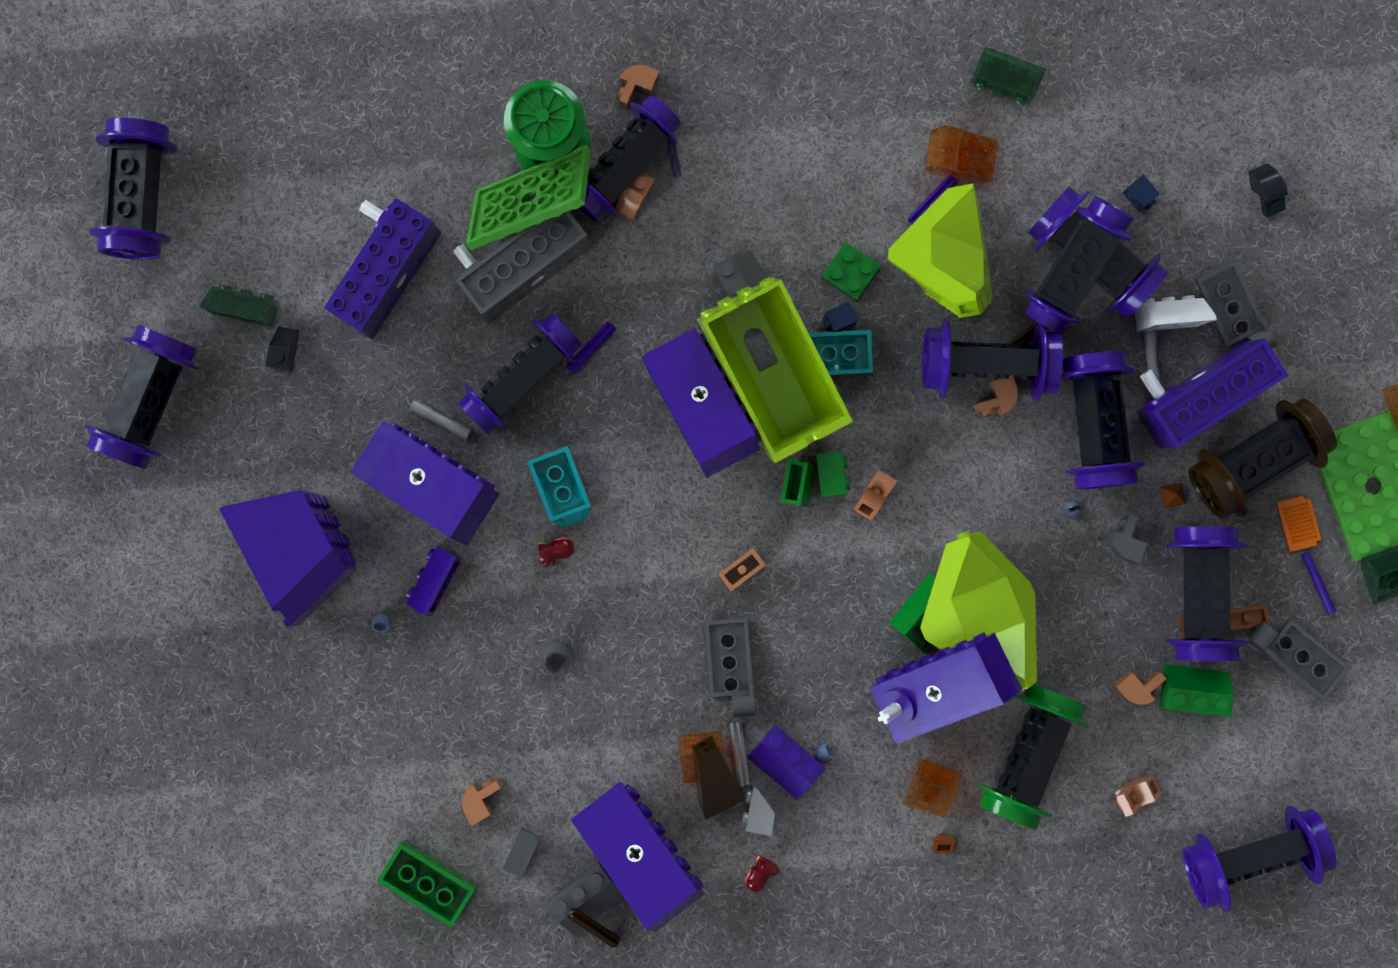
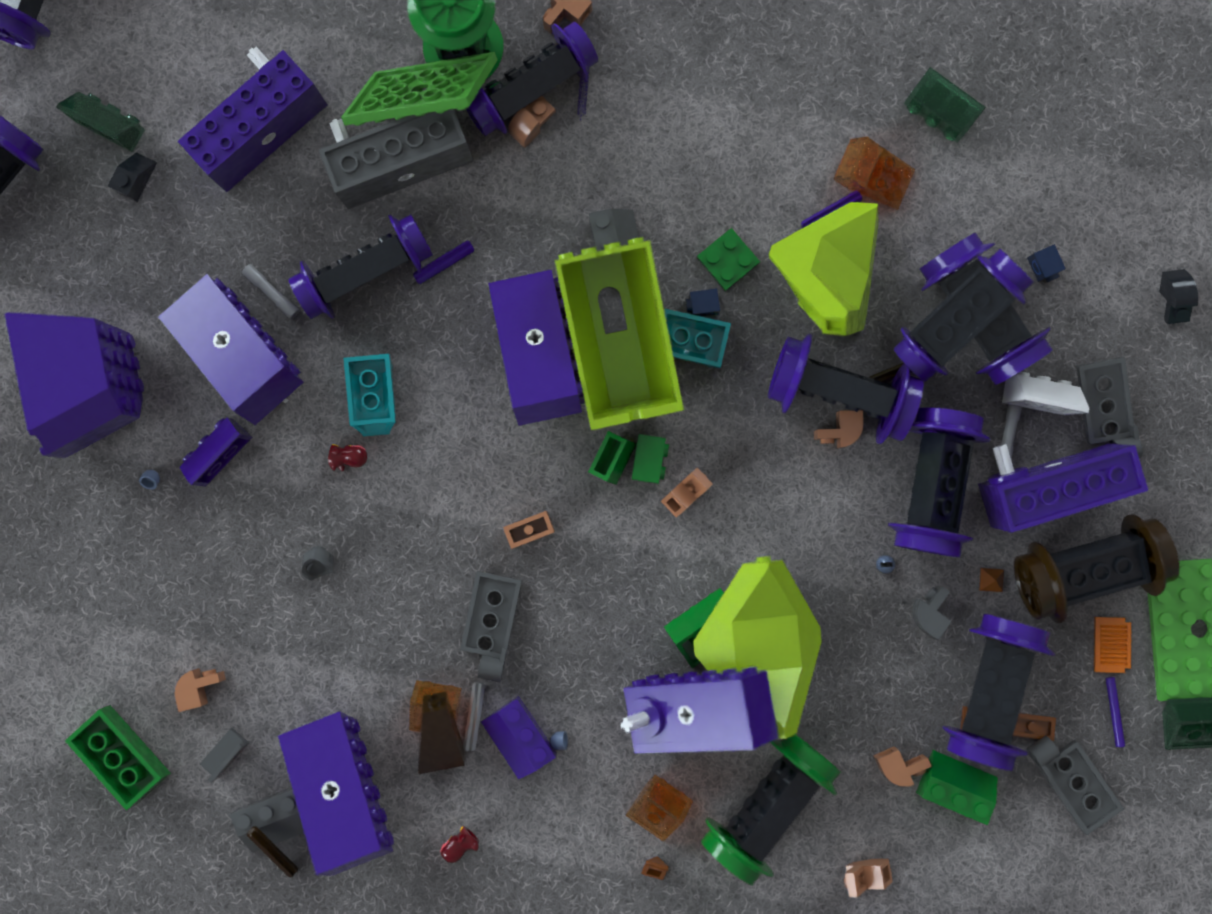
camera: 15 degrees right, 0 degrees up
(760, 814) = (476, 785): light grey slope -> none

